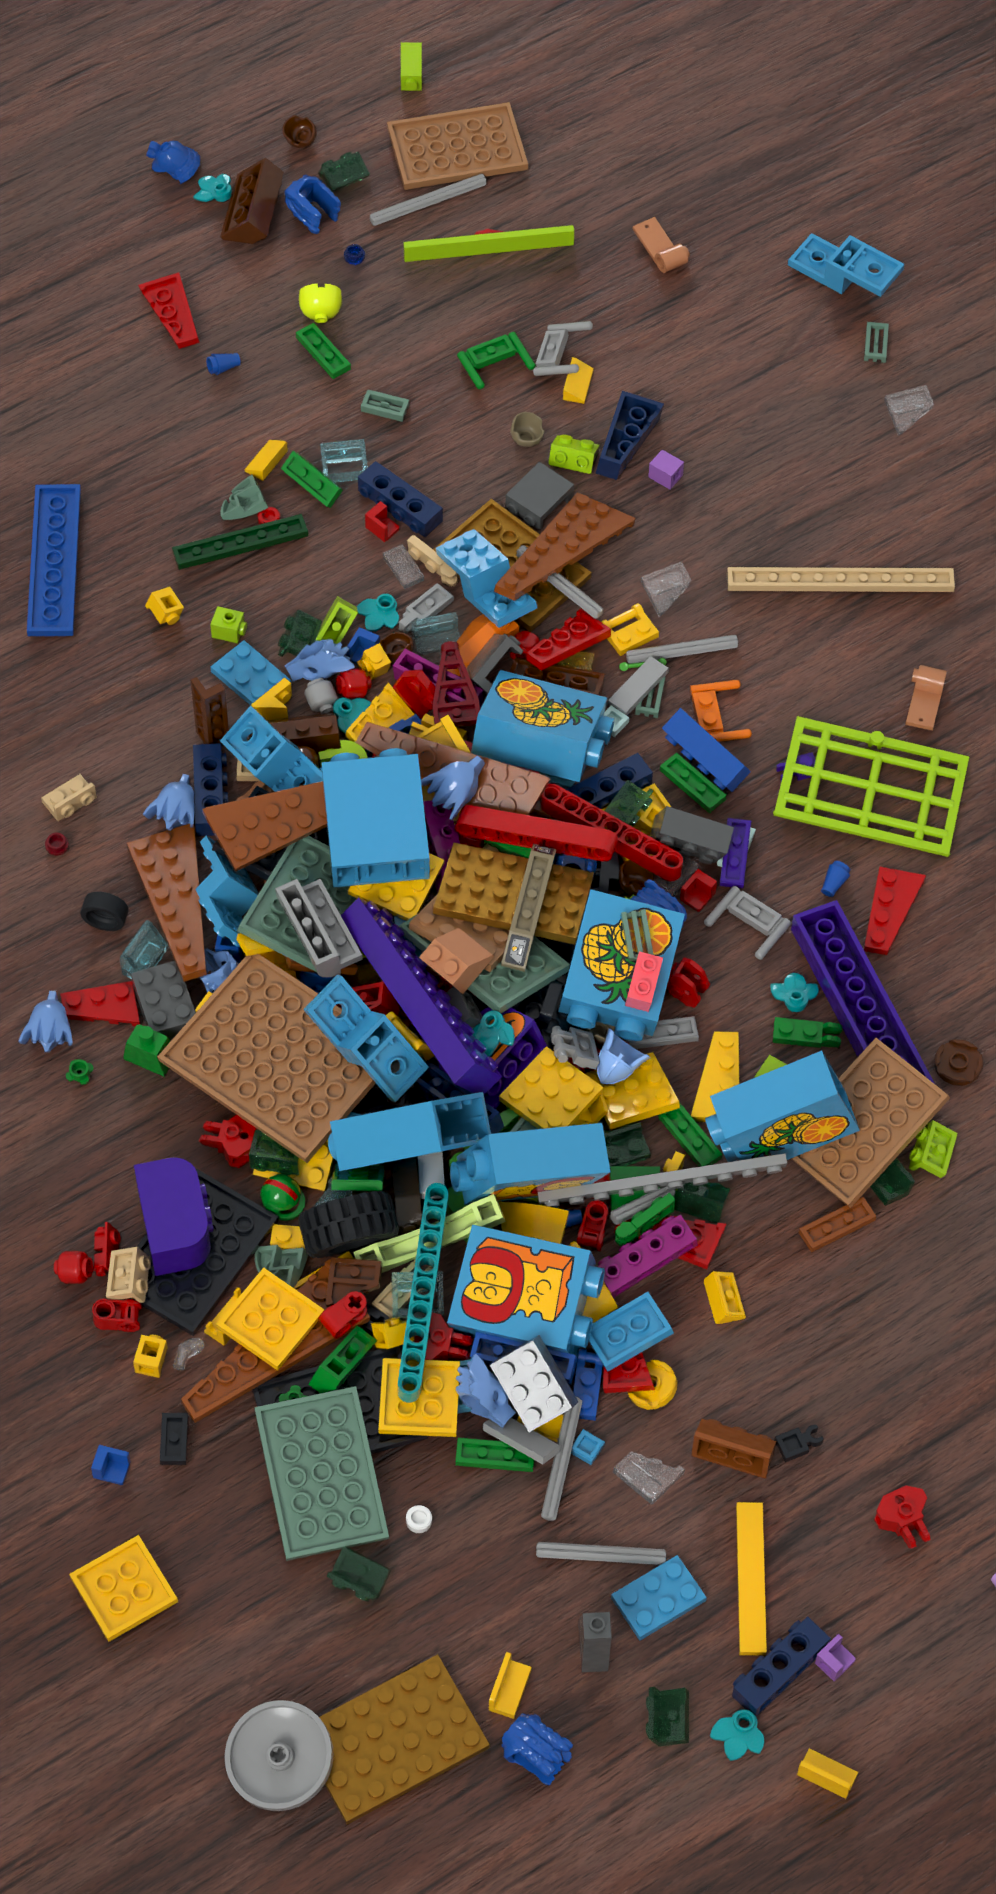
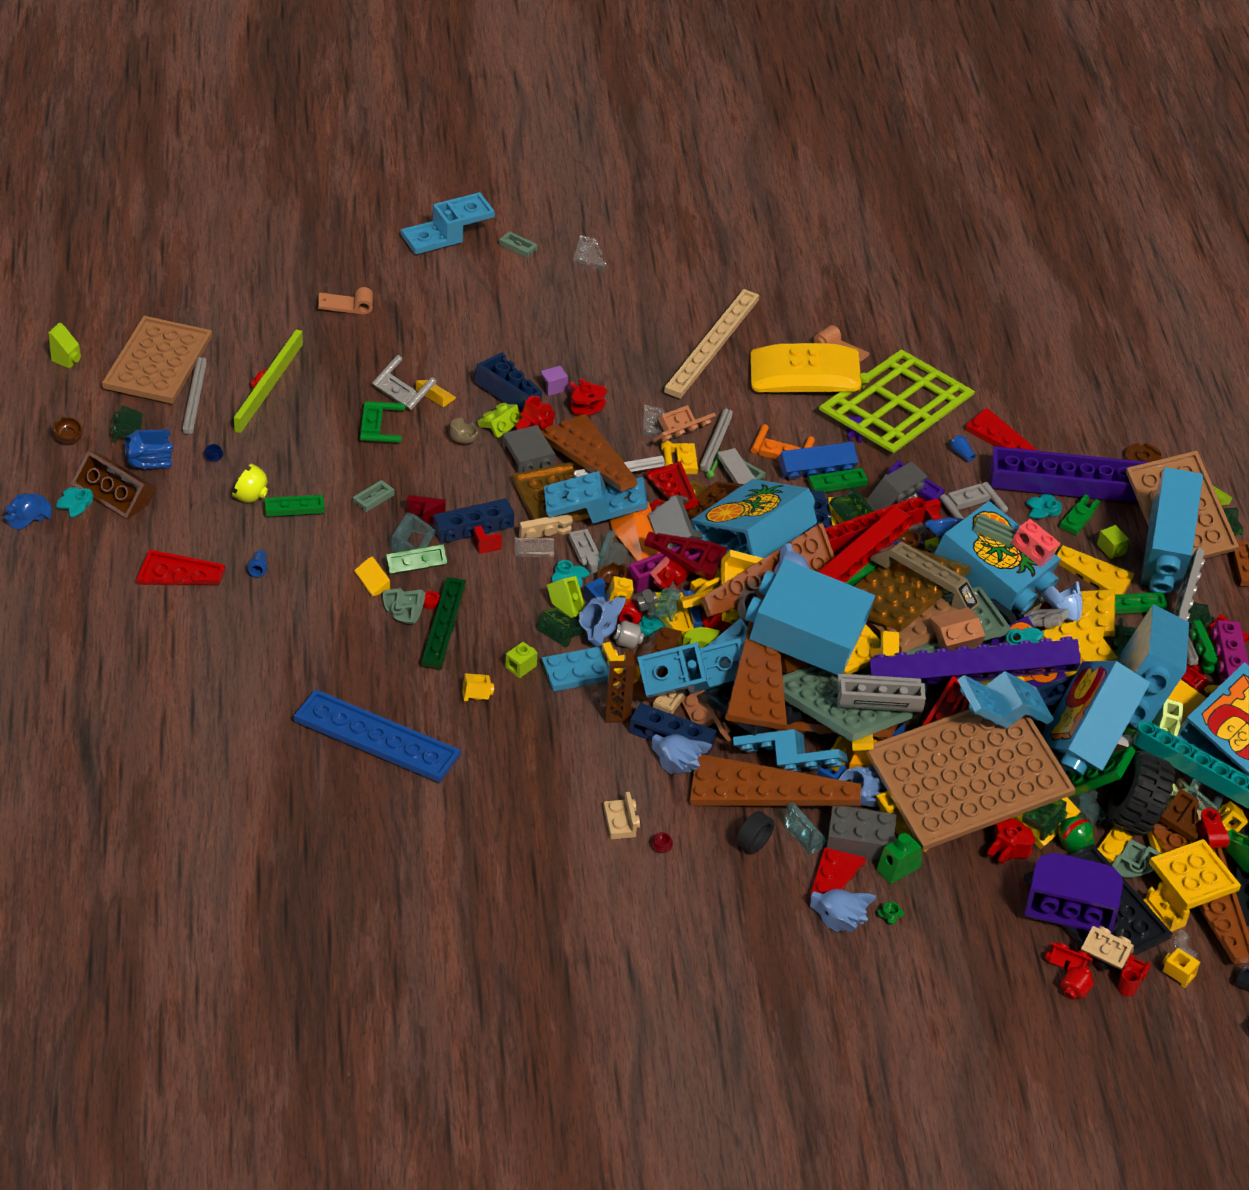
camera: 65 degrees left, 15 degrees down
(363, 688) = (647, 602): none -> dark grey plate
(378, 708) = (668, 602): none -> clear light blue hinge
(390, 454) = (425, 507): none -> dark red slope
(390, 721) = (693, 600): none -> yellow tile
(399, 908) = (889, 644): none -> yellow panel
(588, 478) = (536, 415): none -> red hinge
(656, 506) = (586, 396): none -> red hinge
(672, 600) = (679, 421): none -> nougat bracket
(859, 680) = (805, 368): none -> yellow wedge

